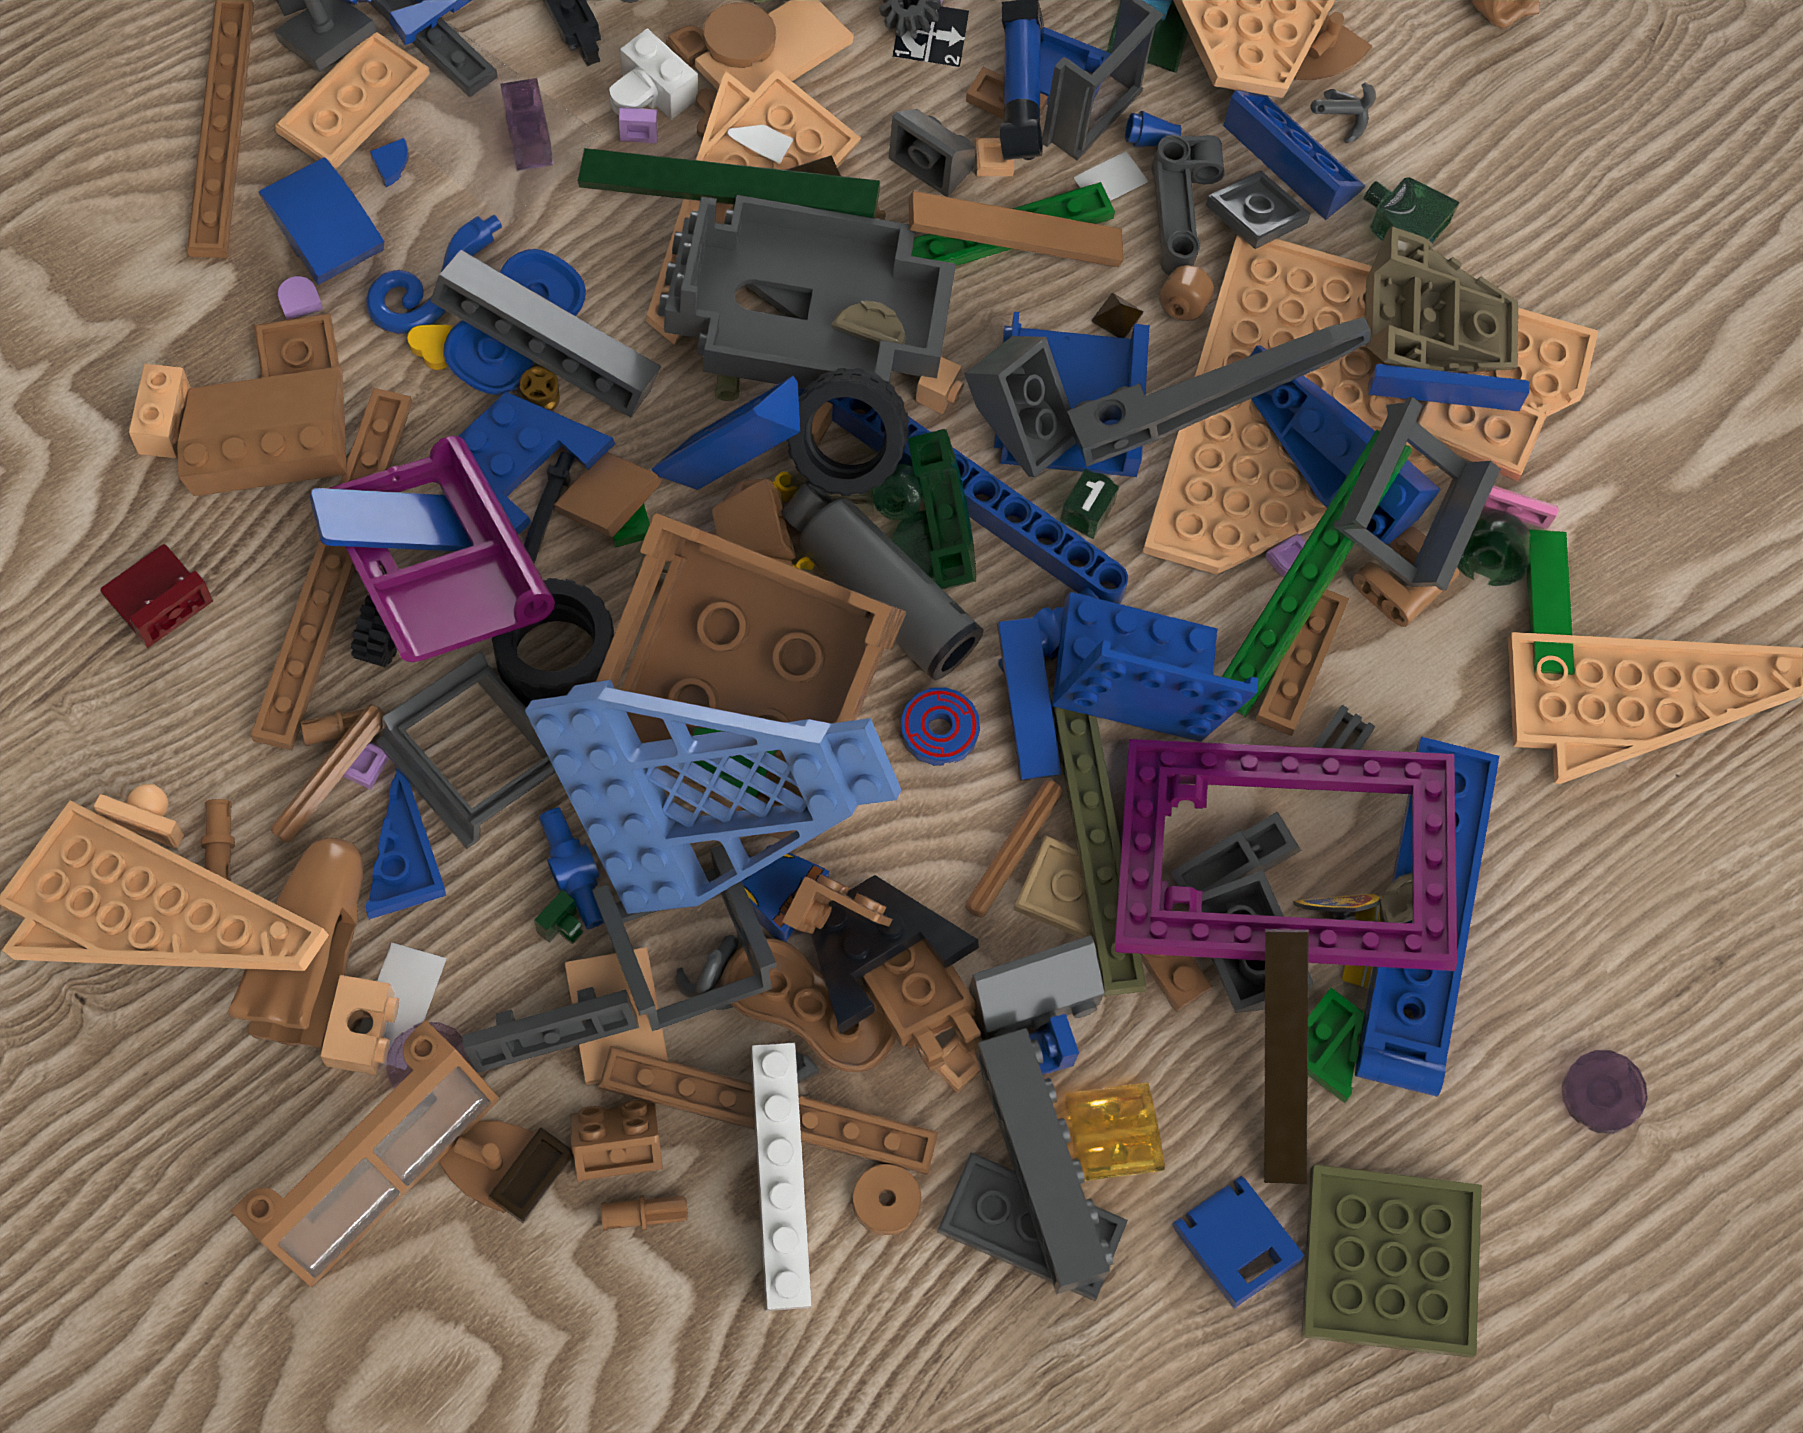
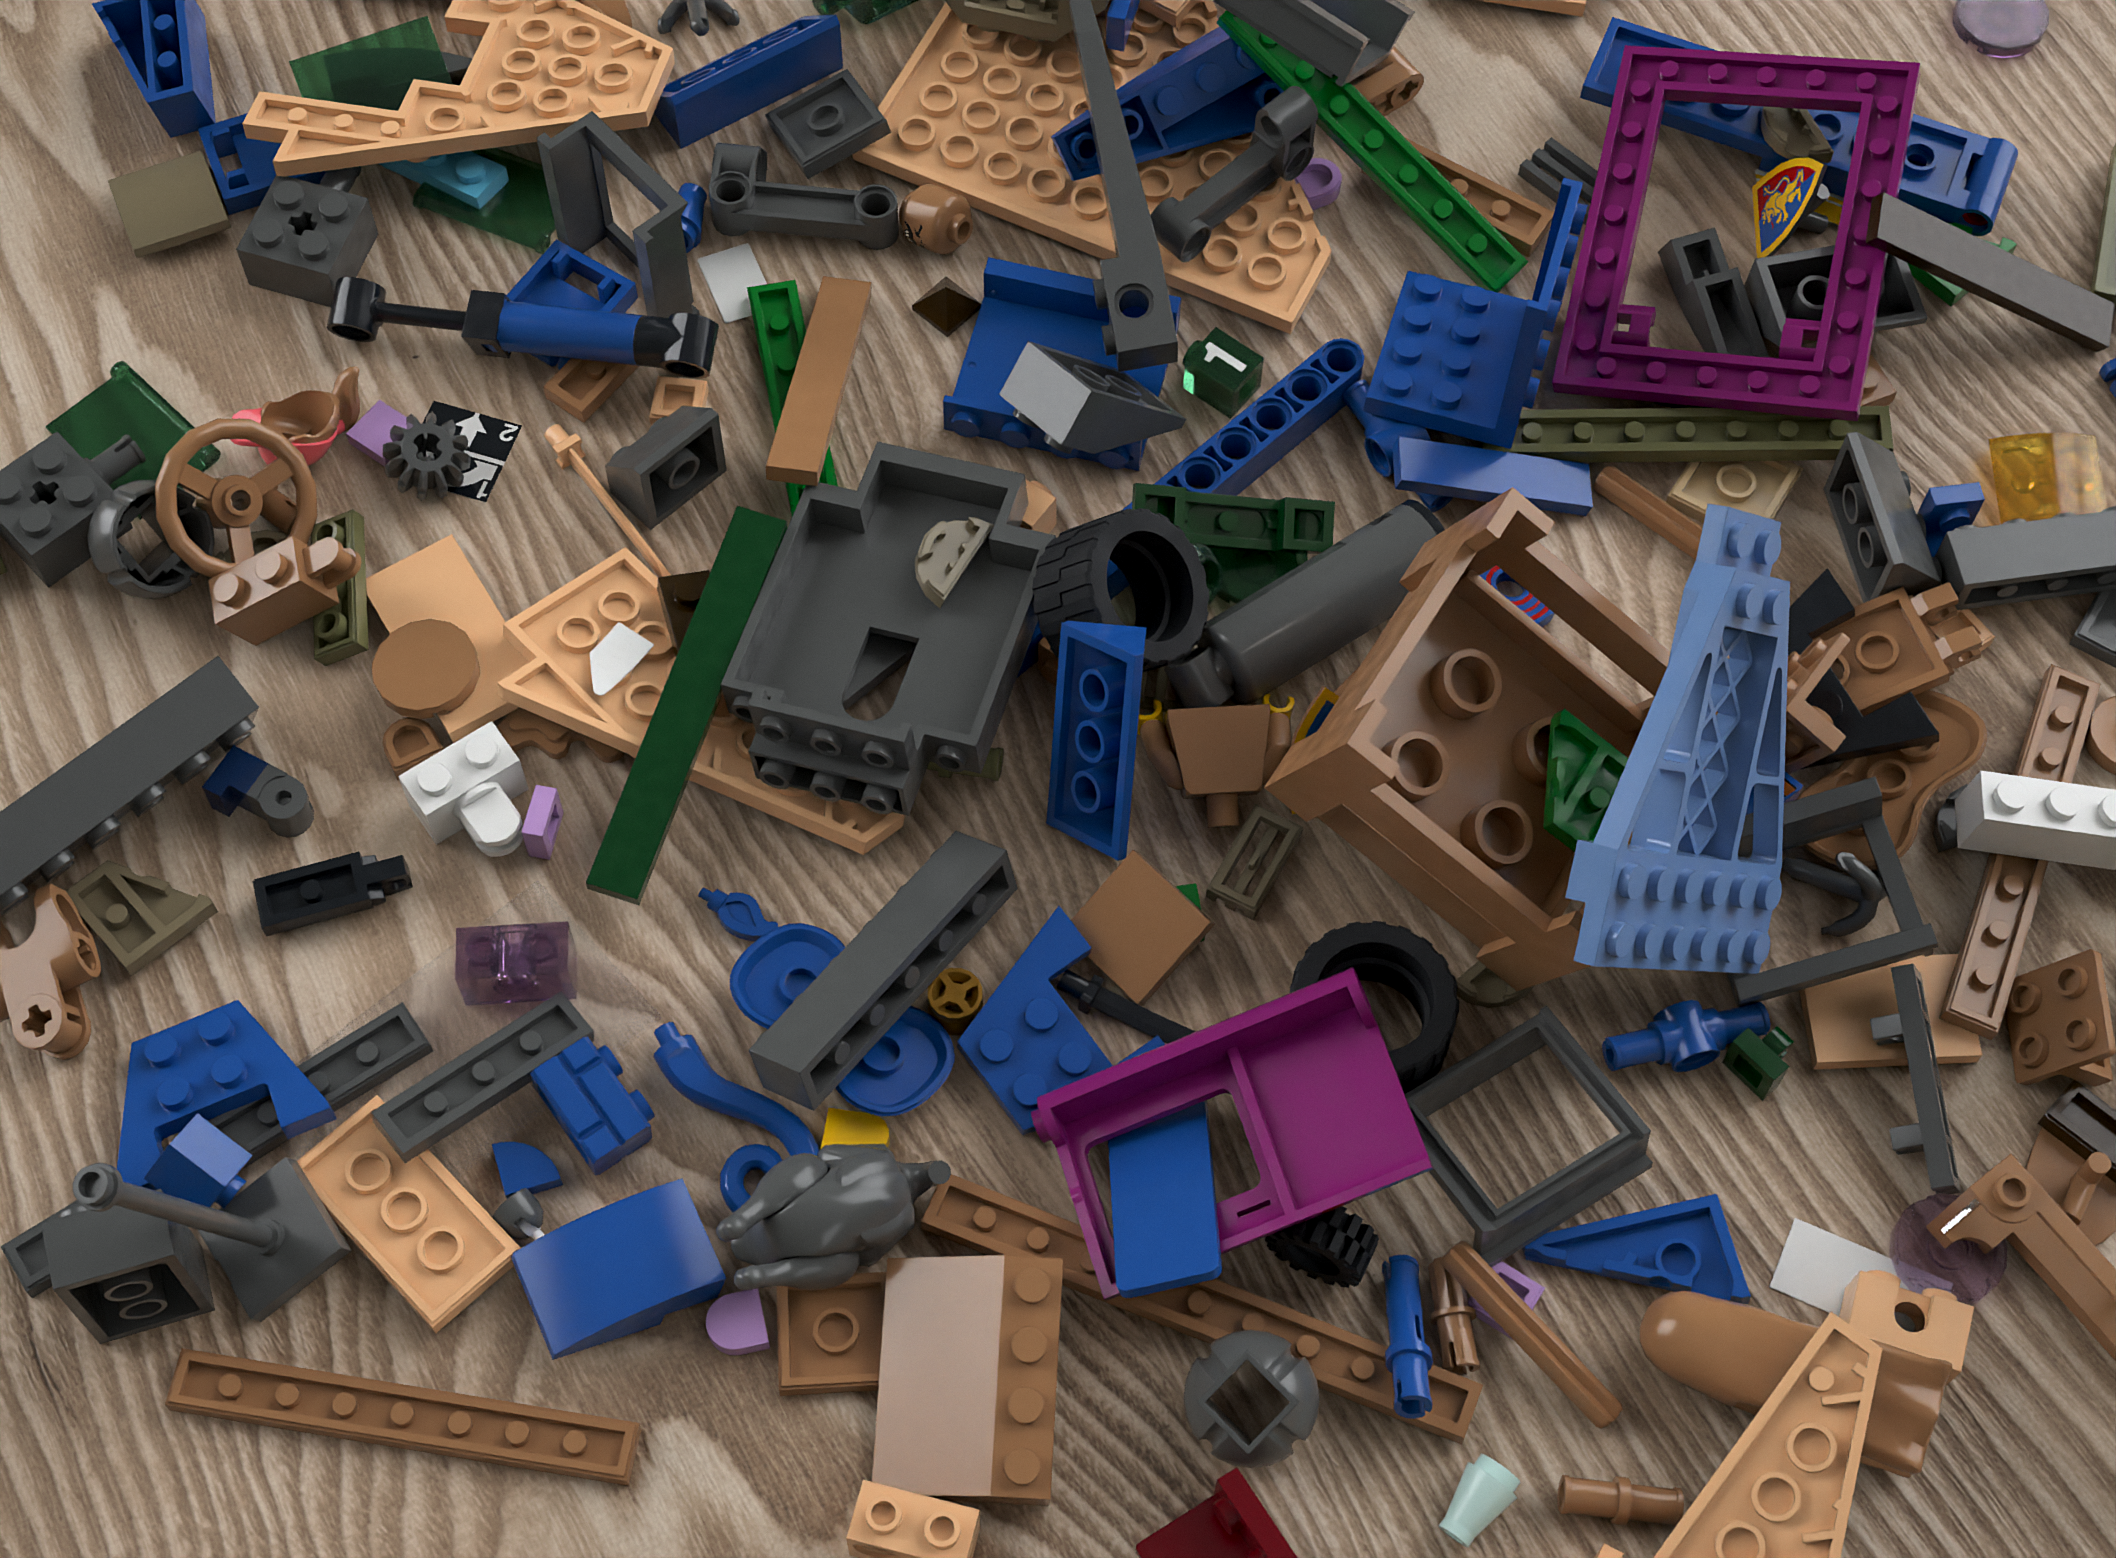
camera: 75 degrees left, 5 degrees down
(214, 752) = (1479, 1499): none -> light aqua cone
(270, 603) = (1288, 1374): none -> dark grey piece
(300, 688) = (1407, 1355): none -> blue pin
(357, 163) = (520, 1215): none -> dark grey hinge
(364, 323) = (826, 1215): none -> dark grey piece
(434, 186) = (593, 1104): none -> blue brick
(444, 119) = (479, 1077): none -> dark grey plate
(591, 255) = (738, 914): none -> blue piece
(937, 96) = (570, 453): none -> light nougat sword
(1291, 507) = (1278, 148): none -> dark grey piece

